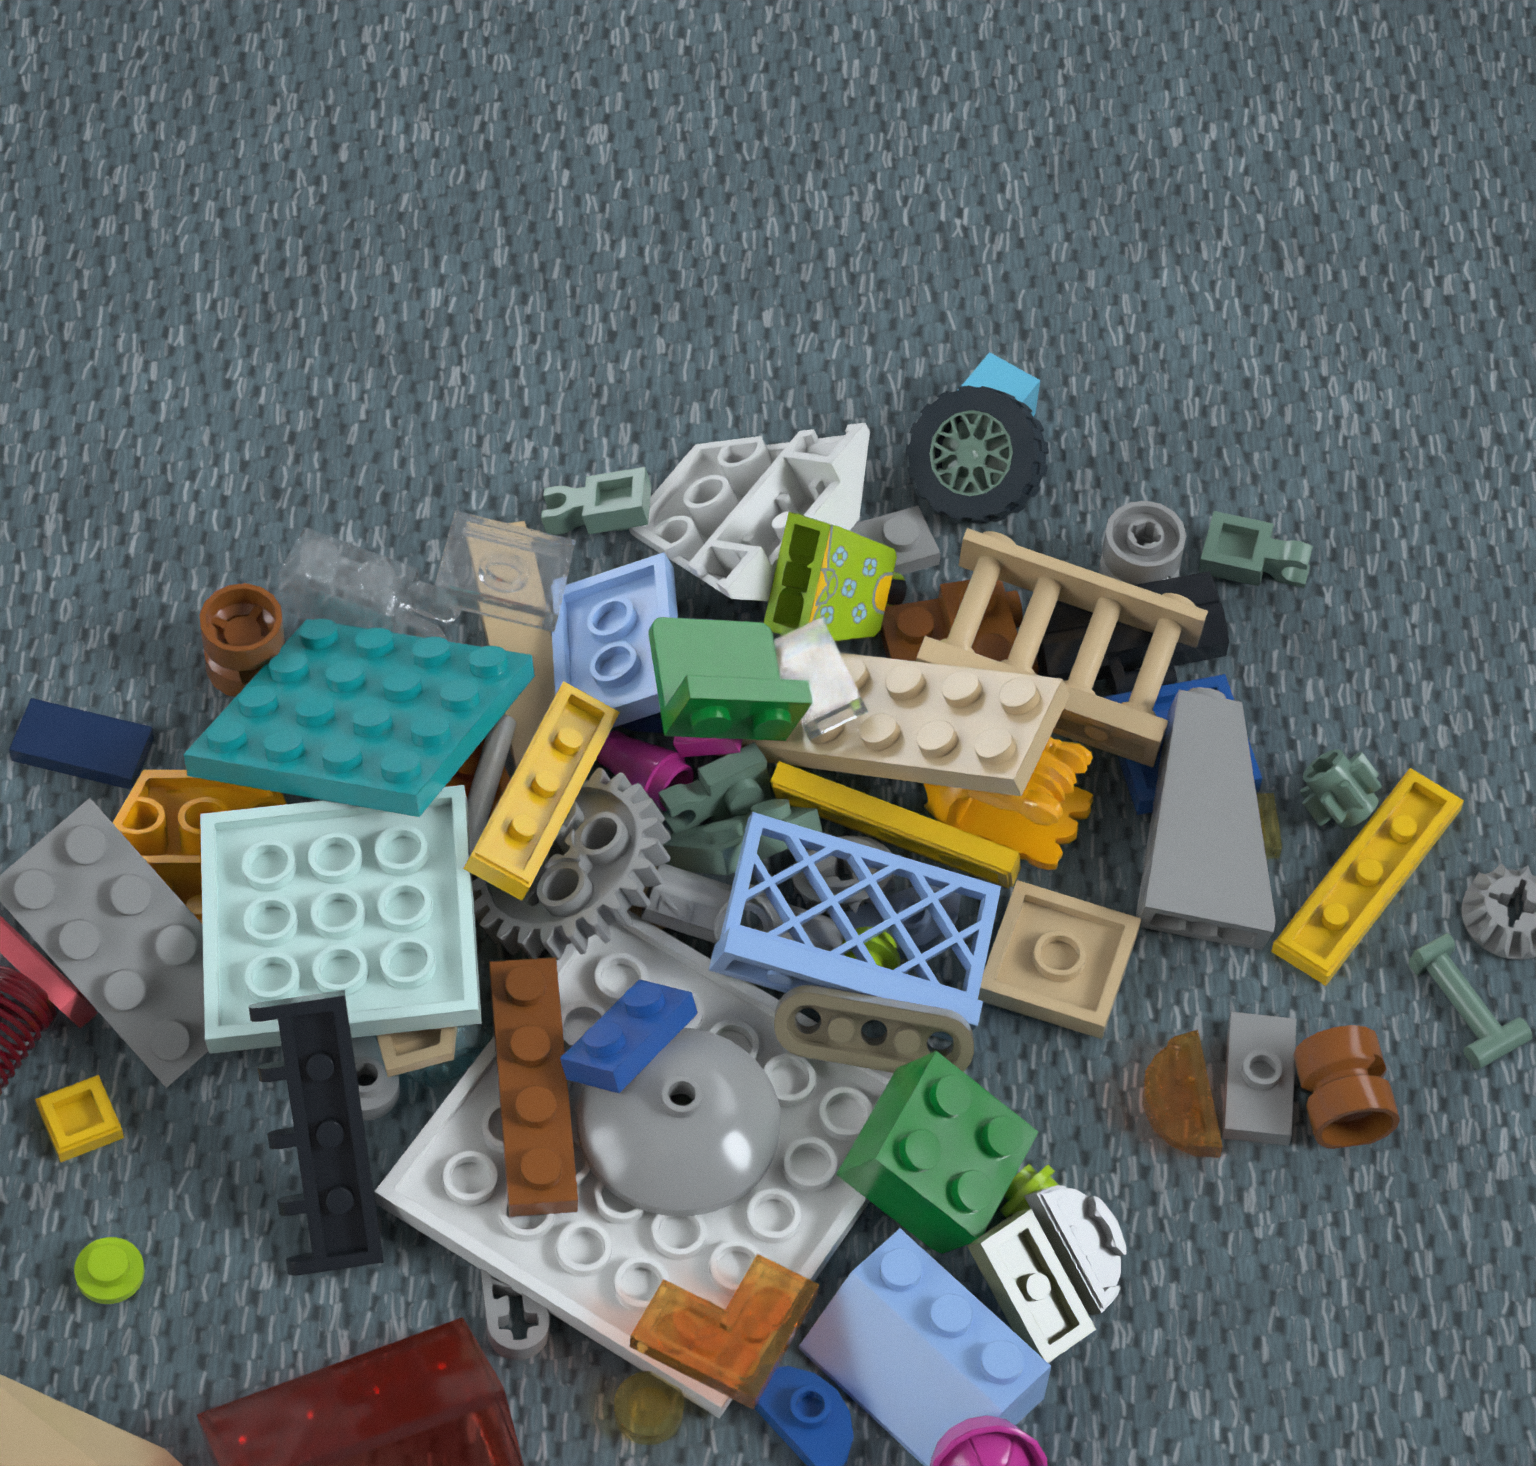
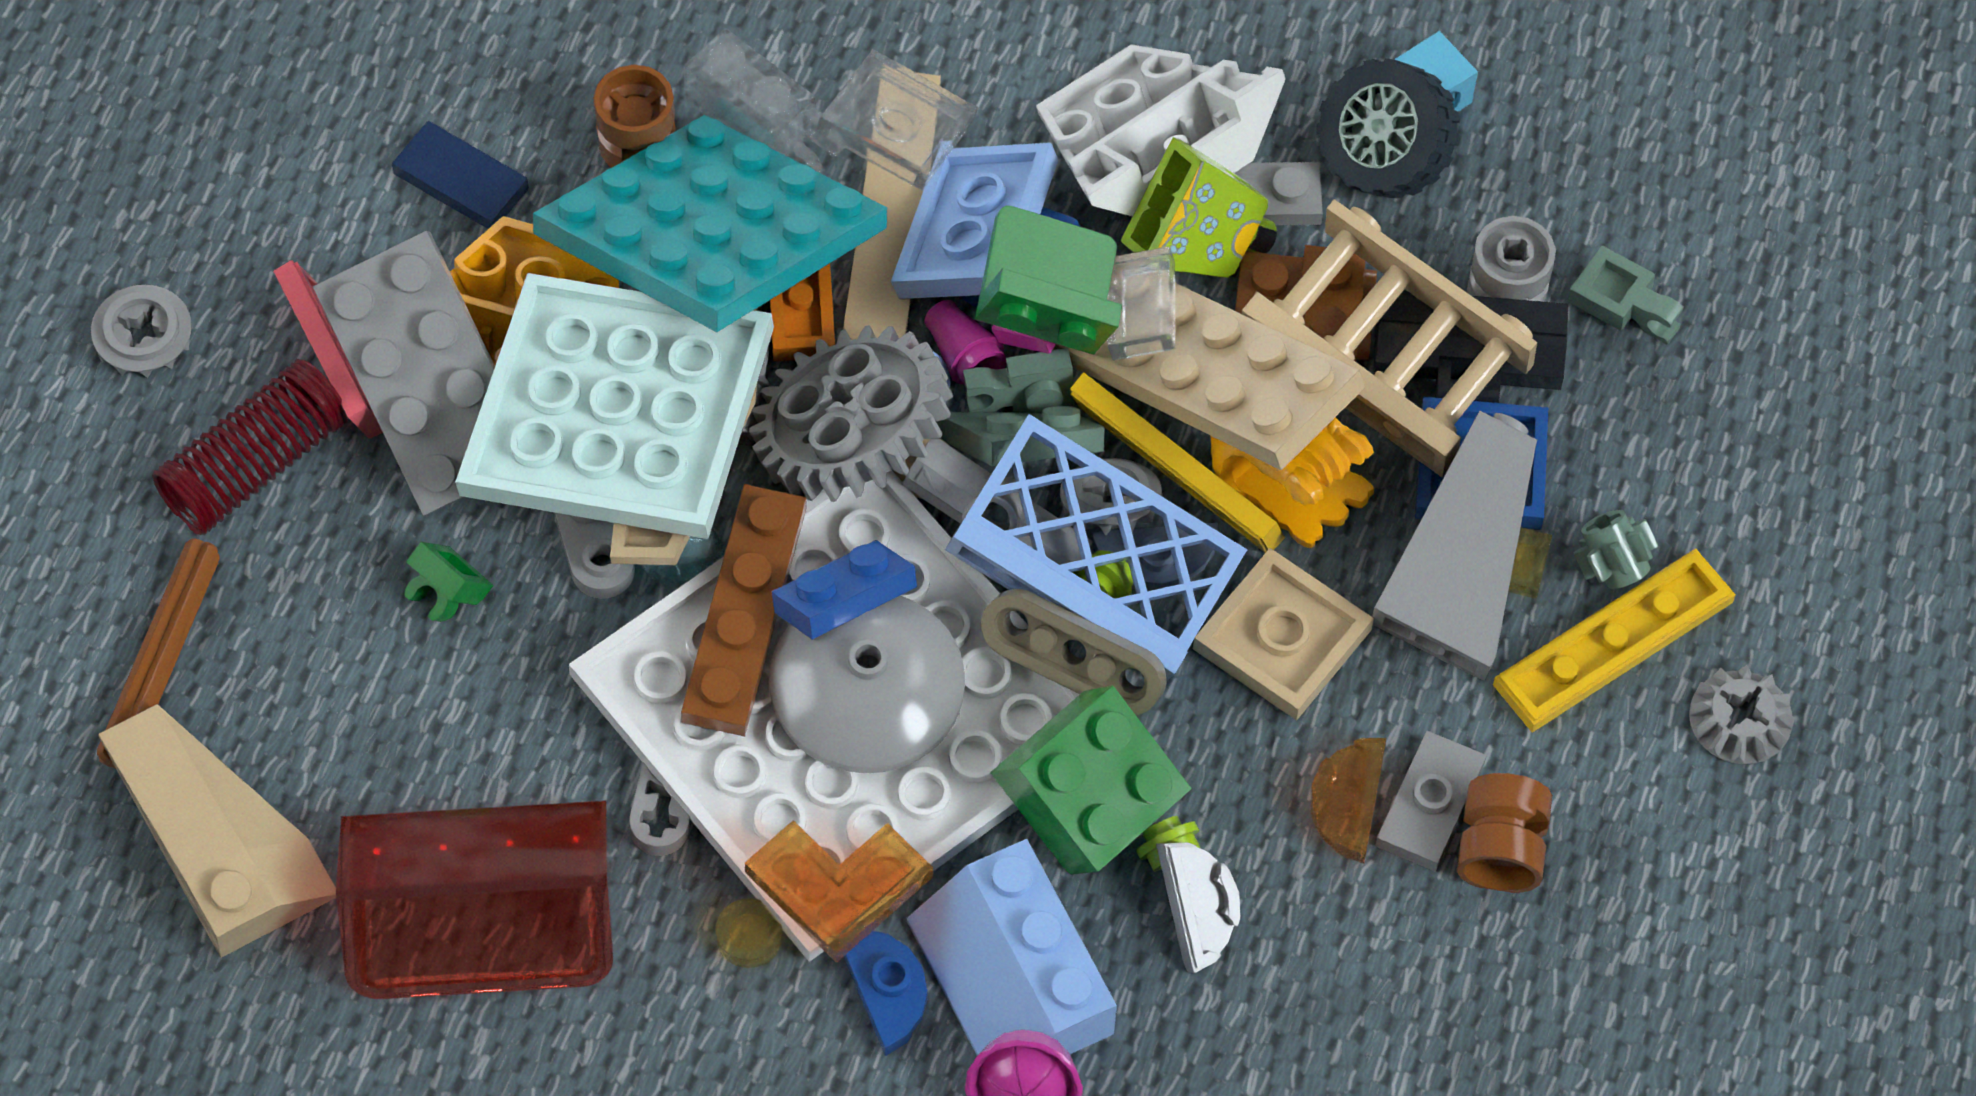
camera: 20 degrees right, 5 degrees up
(79, 1118) = (338, 520): yellow tile -> none
(109, 1270) = (315, 665): lime plate -> none
(216, 1140) = (449, 576): none -> green tile
(325, 1131) = (537, 596): black hinge -> none
(488, 776) = (803, 322): white bar -> none
(541, 791) = (844, 338): yellow tile -> none
(605, 504) = (1021, 80): sand green plate -> none
(1031, 1285) = (1133, 929): plate -> none
(1493, 1038) = (1671, 829): sand green piece -> none

